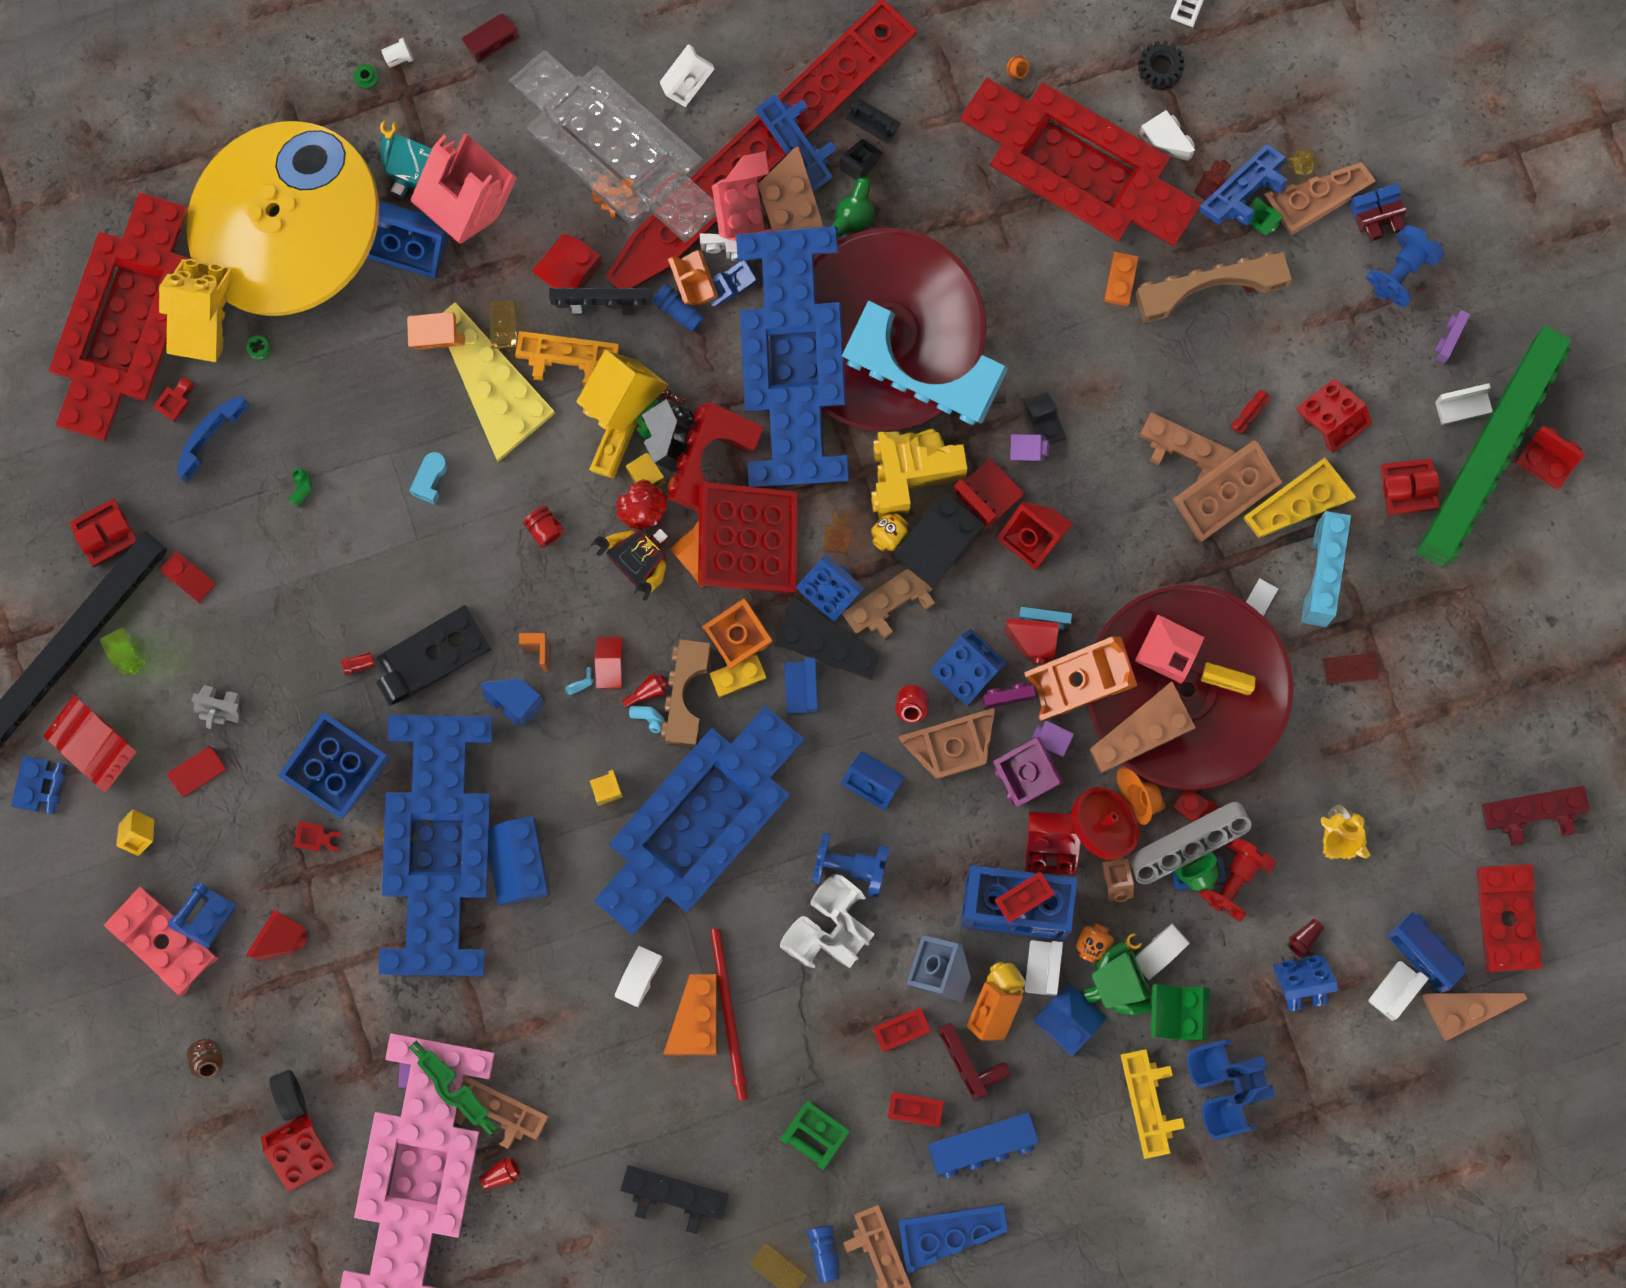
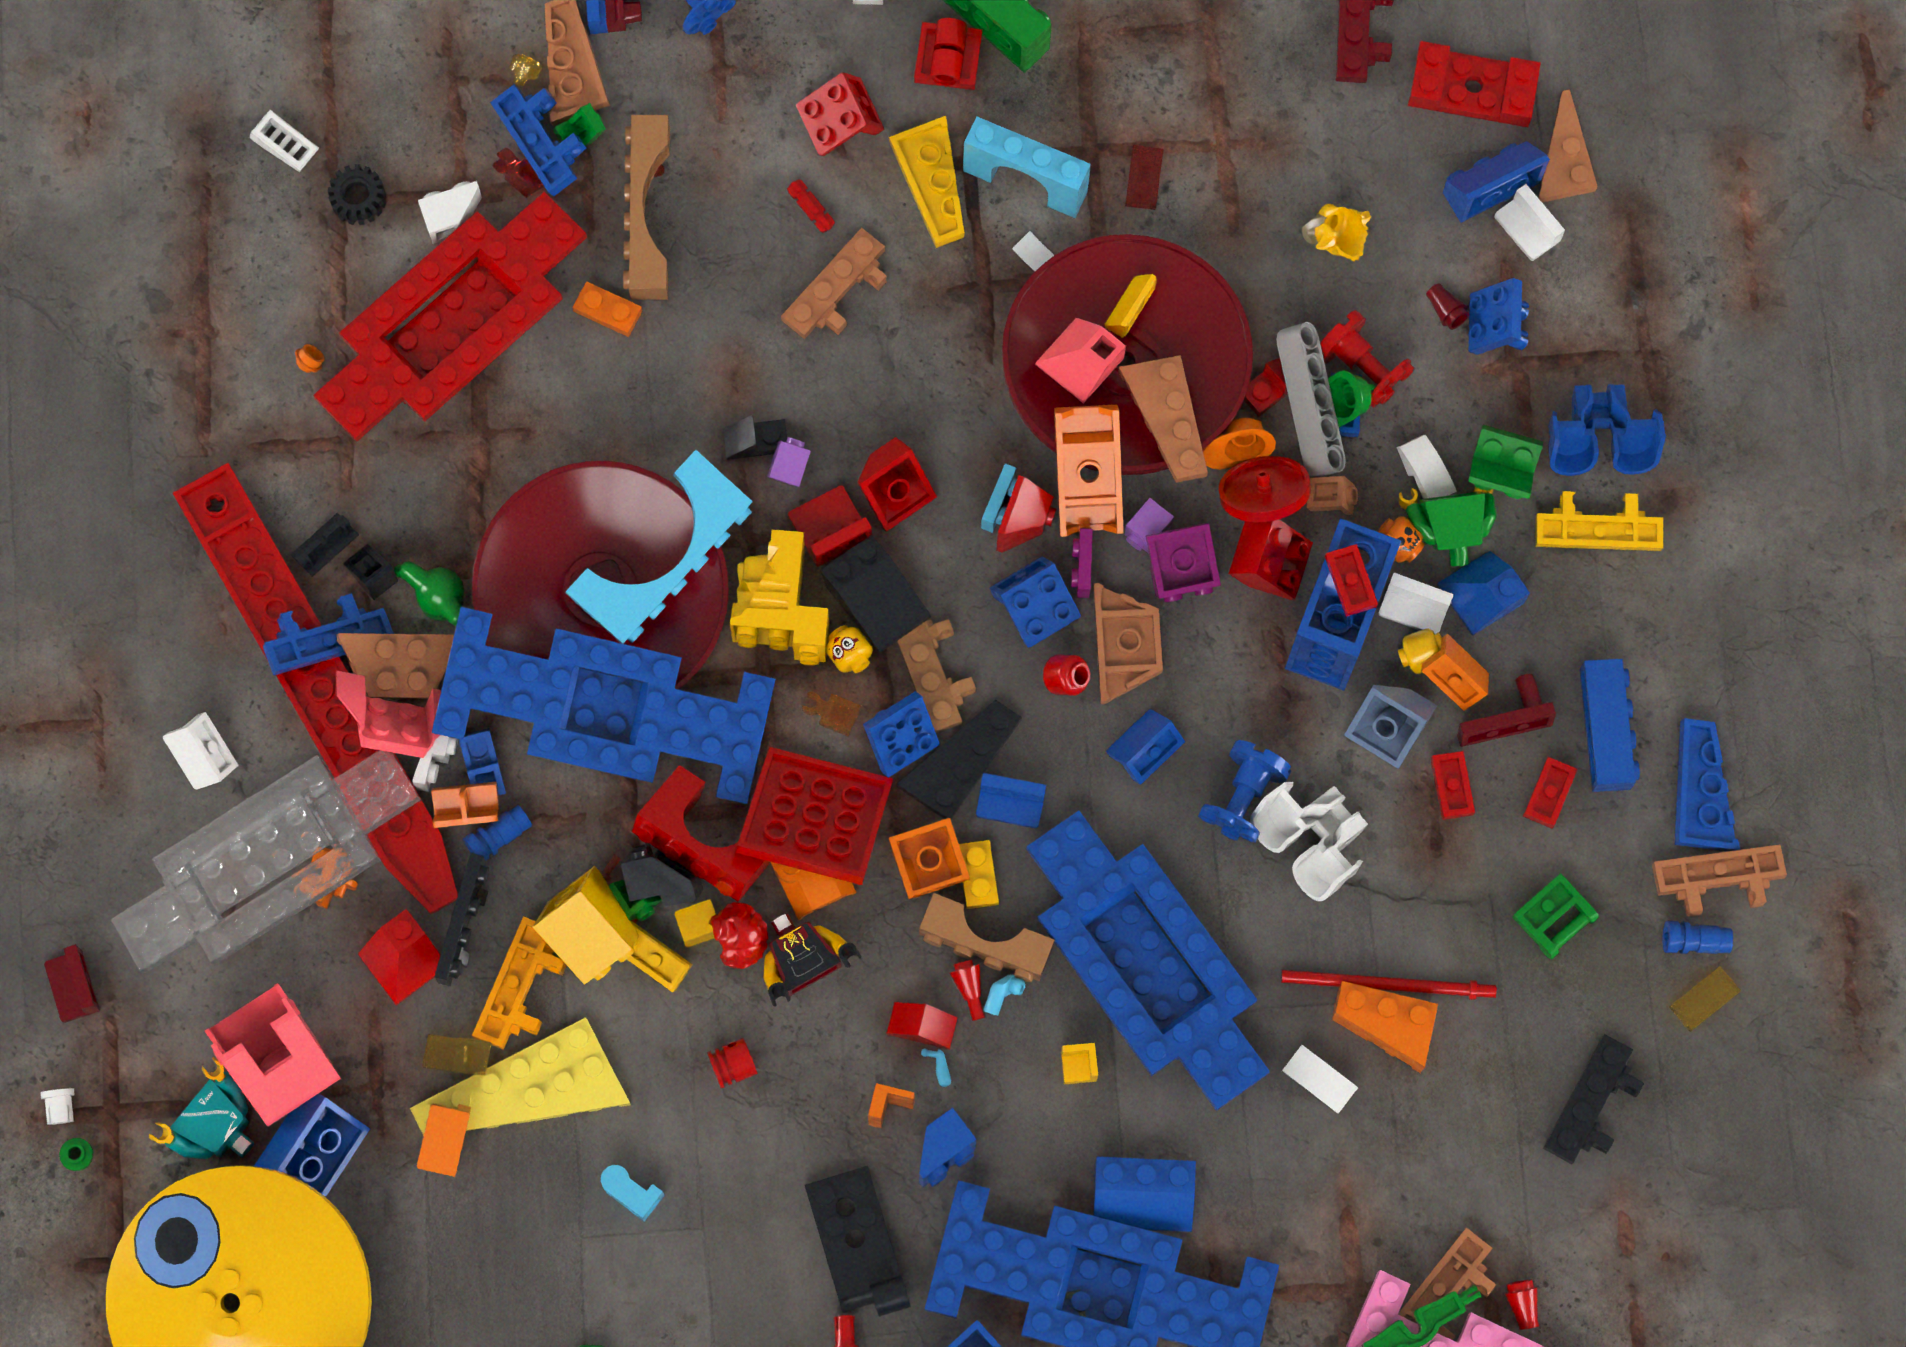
camera: 80 degrees left, 5 degrees down
(1227, 490) = (901, 253): nougat plate -> none

